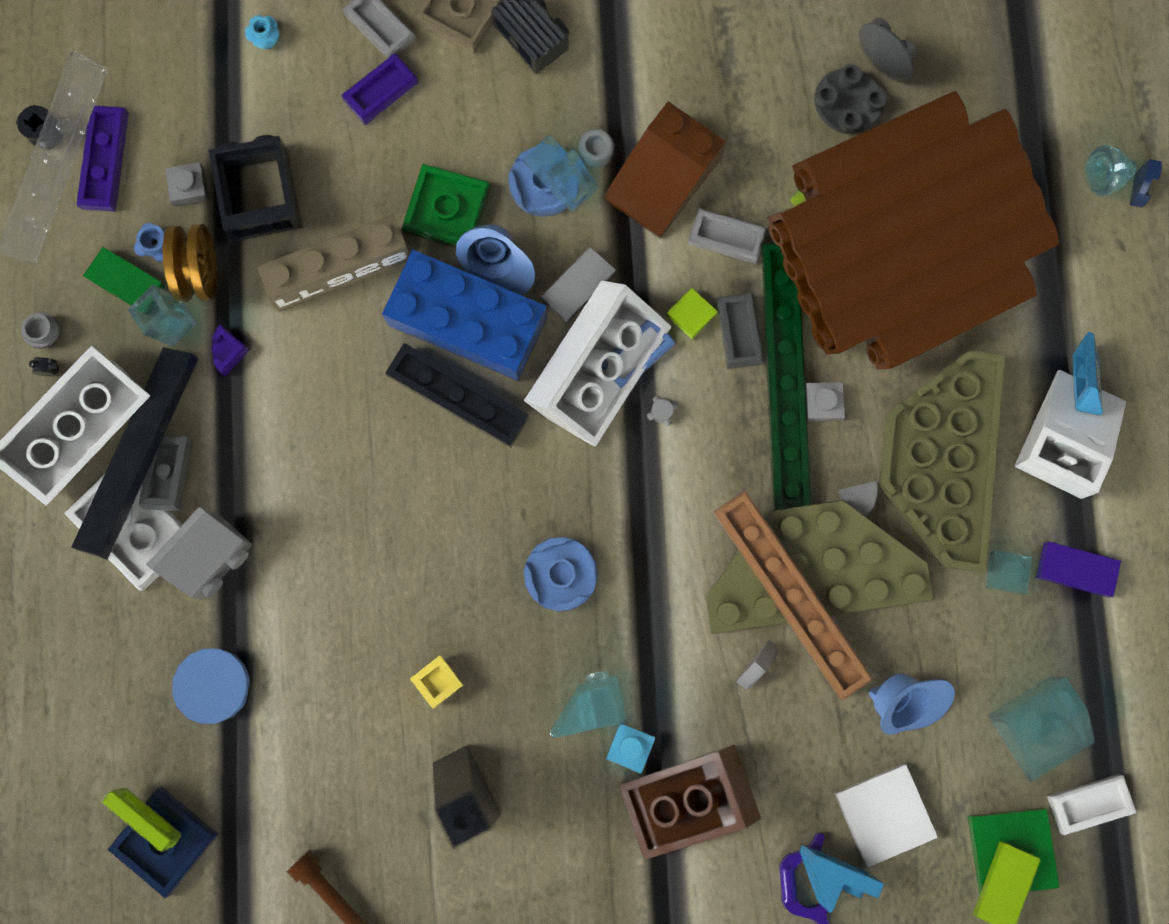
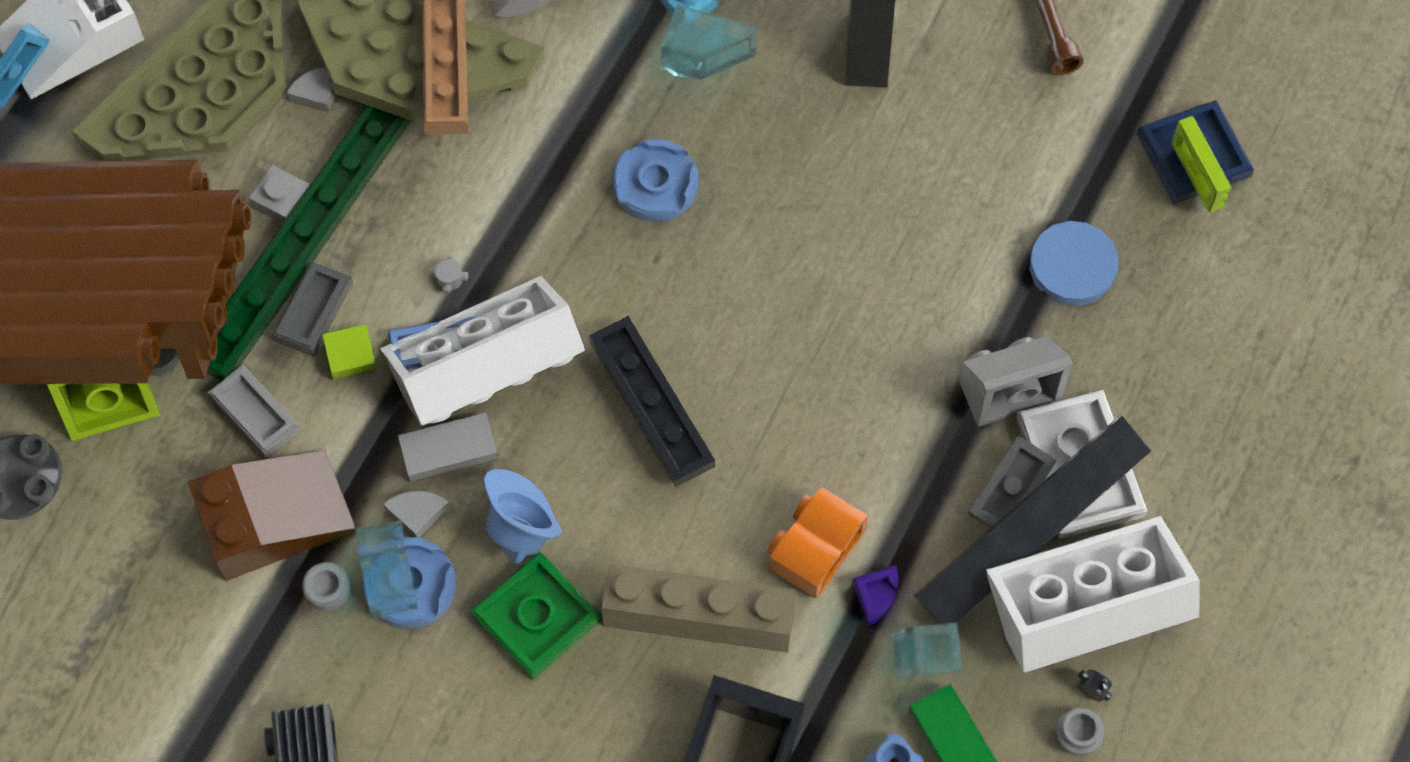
camera: 150 degrees left, 15 degrees down
(190, 263) = (862, 686): pearl gold wheel -> none
(282, 356) = (817, 541): none -> orange brick
(436, 681) = (840, 144): light yellow plate -> none
(465, 315) = (591, 471): blue brick -> none
(570, 229) = (416, 510): none -> light grey tile

